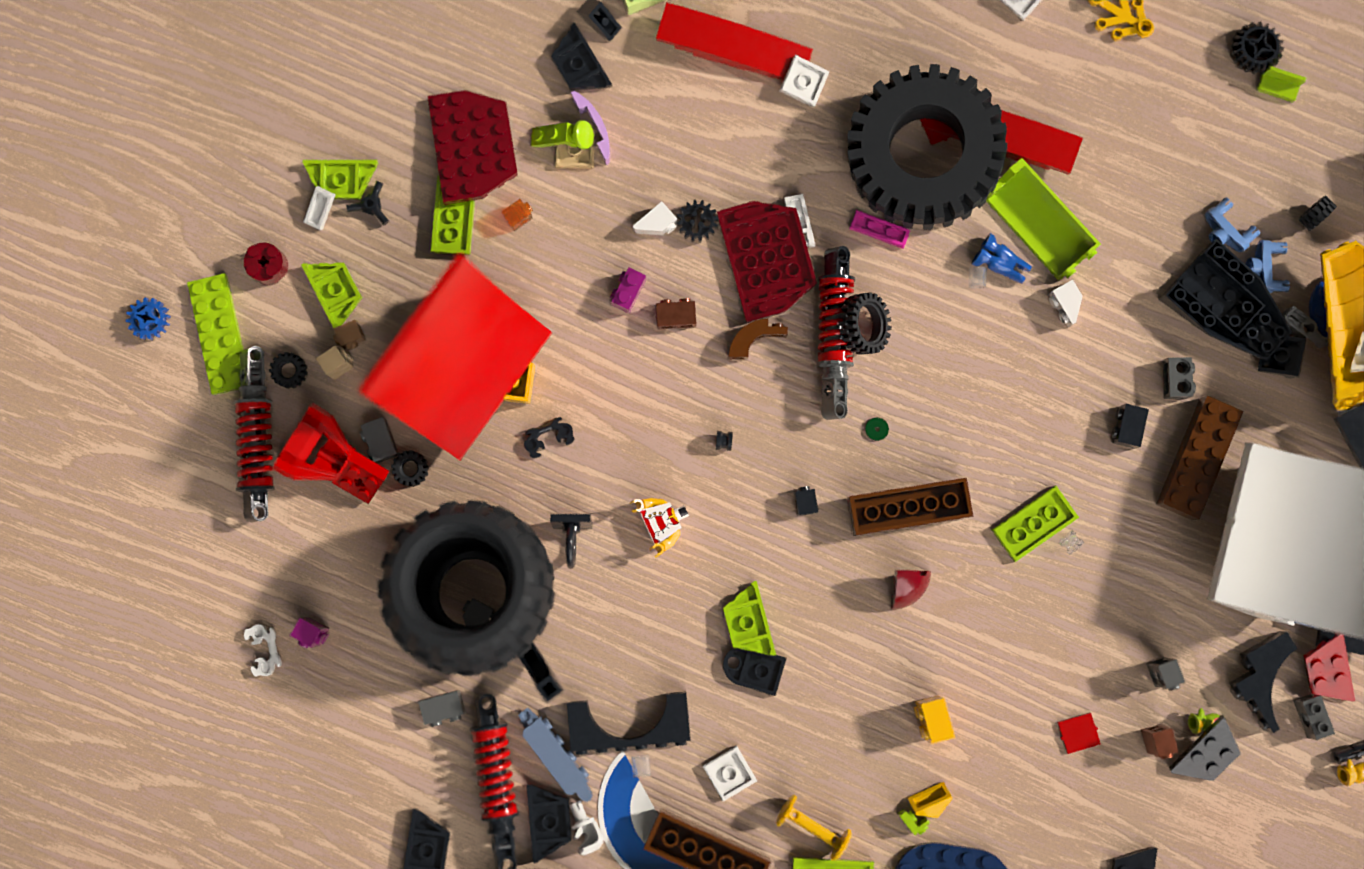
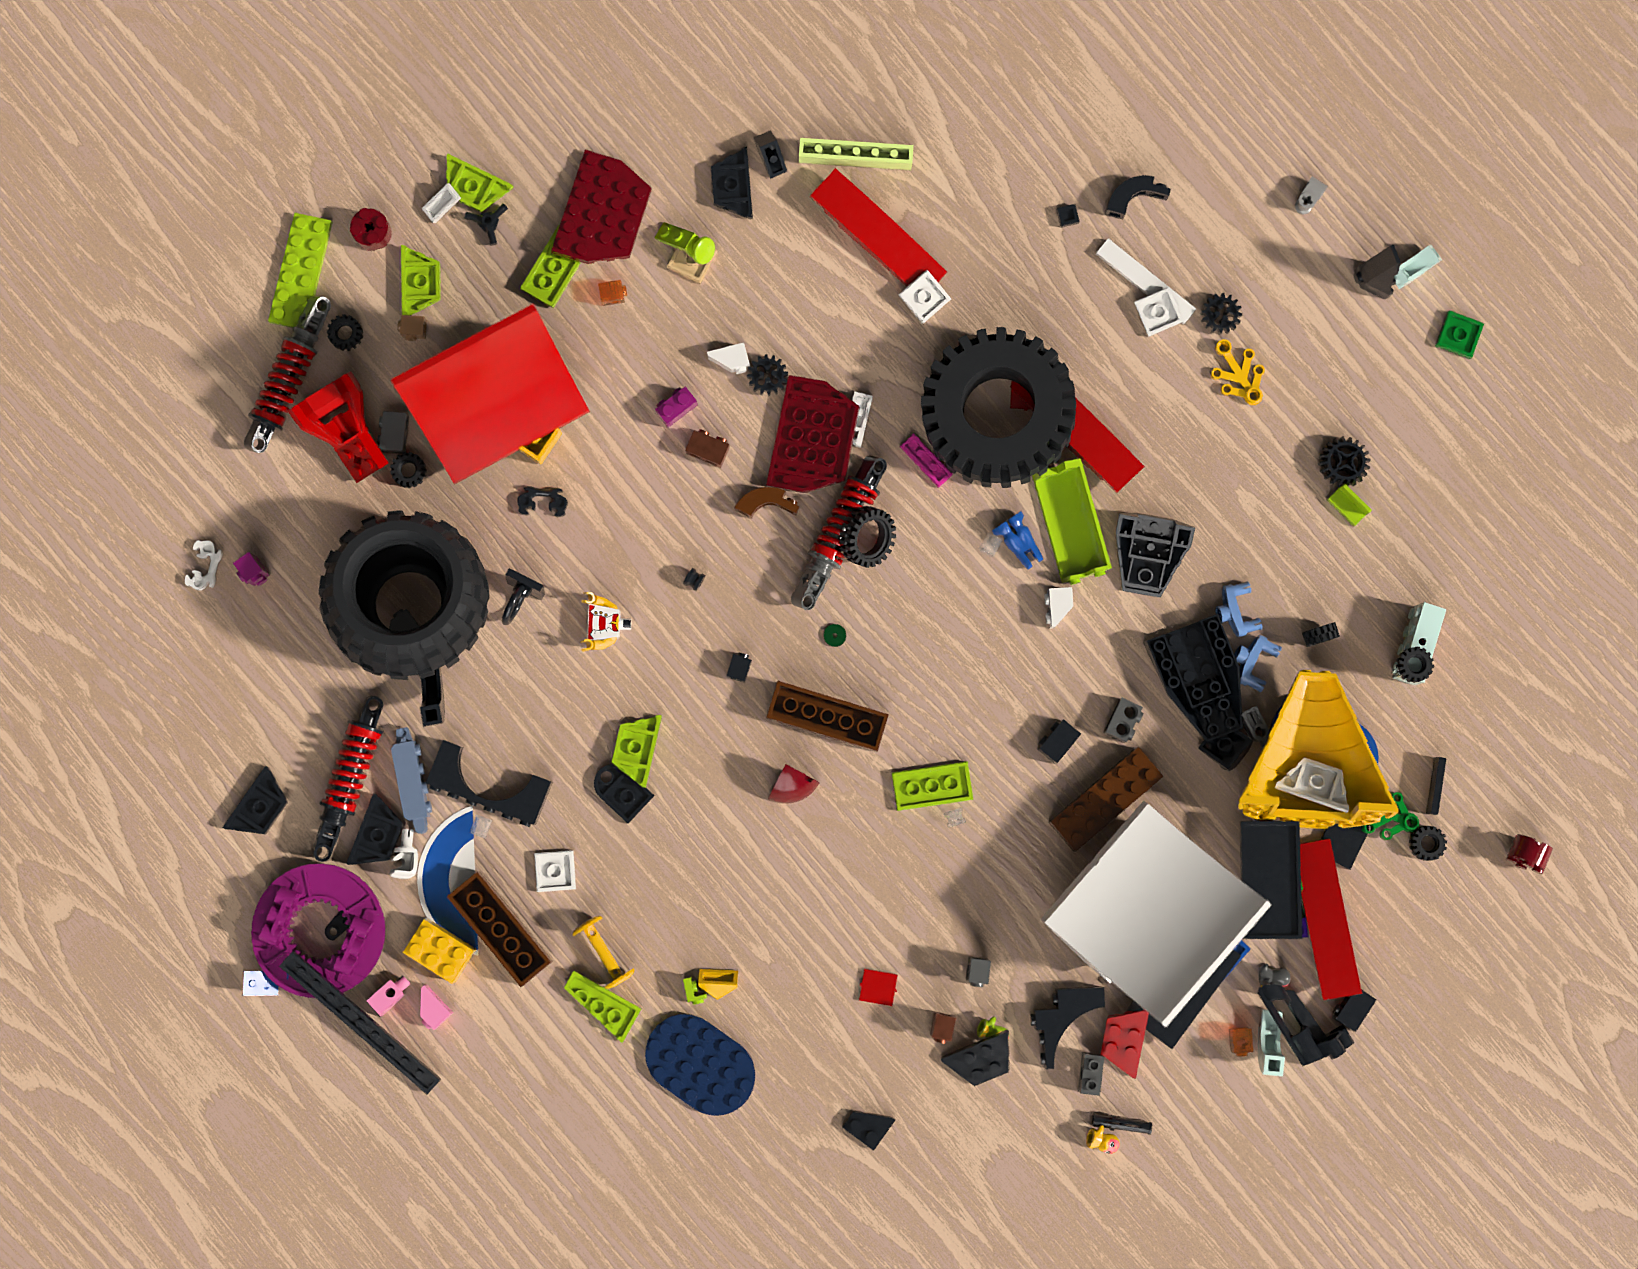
camera: 20 degrees right, 0 degrees up
(150, 310) = (237, 237): blue gear -> none
(335, 362) = (388, 345): tan brick -> none
(442, 707) = (333, 691): dark grey brick -> none
(583, 106) = (719, 268): lavender slope -> none
(934, 719) = (755, 910): yellow brick -> none
(1126, 212) = (1150, 551): none -> black wedge

